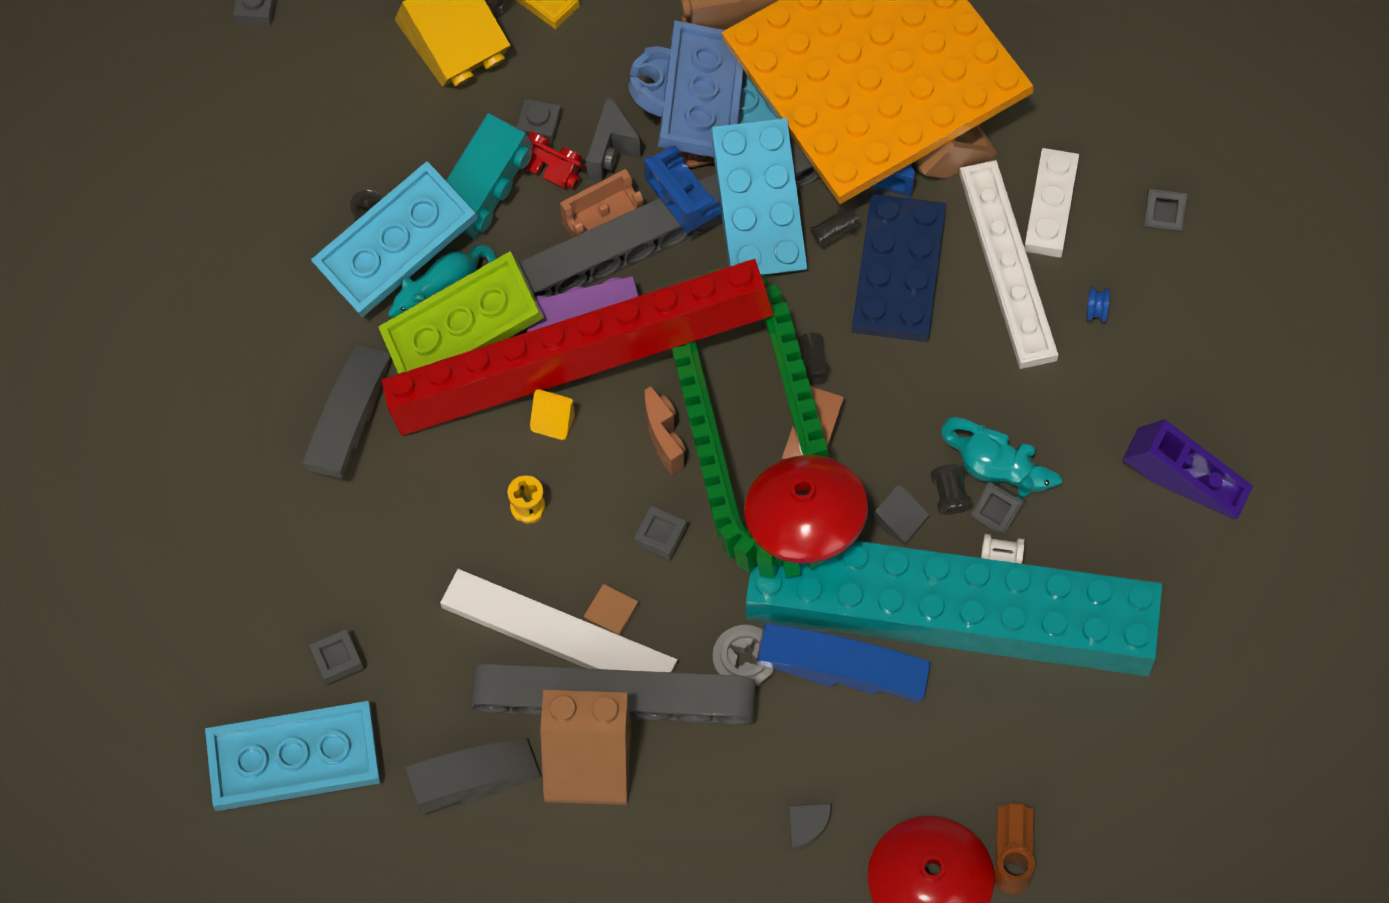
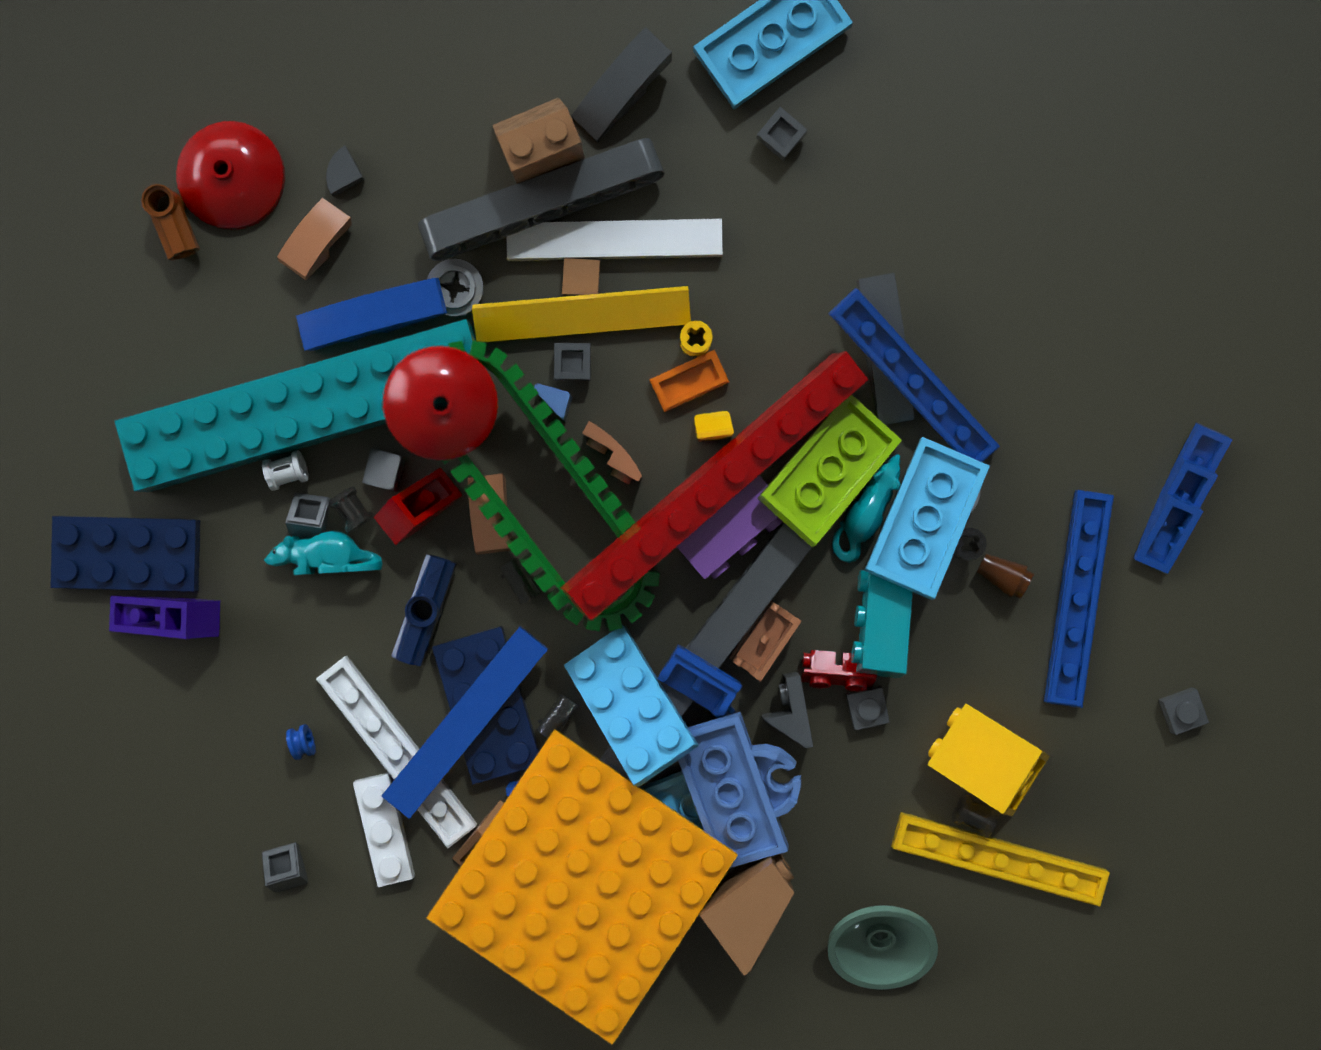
camera: 150 degrees right, 25 degrees up
(147, 175) = (1181, 498): none -> blue slope
(291, 133) = (1078, 598): none -> blue tile
(337, 368) = (912, 377): none -> blue tile
(346, 171) = (1006, 575): none -> reddish brown cone
(557, 468) = (689, 381): none -> orange tile
(628, 573) = (581, 314): none -> yellow tile
(694, 503) = (556, 399): none -> medium blue slope
(868, 764) = (312, 238): none -> nougat slope
(888, 459) = (417, 506): none -> red slope
(906, 384) = (417, 632): none -> dark blue piece
(924, 251) = (464, 722): none -> blue tile
(1205, 550) = (125, 553): none -> dark blue plate

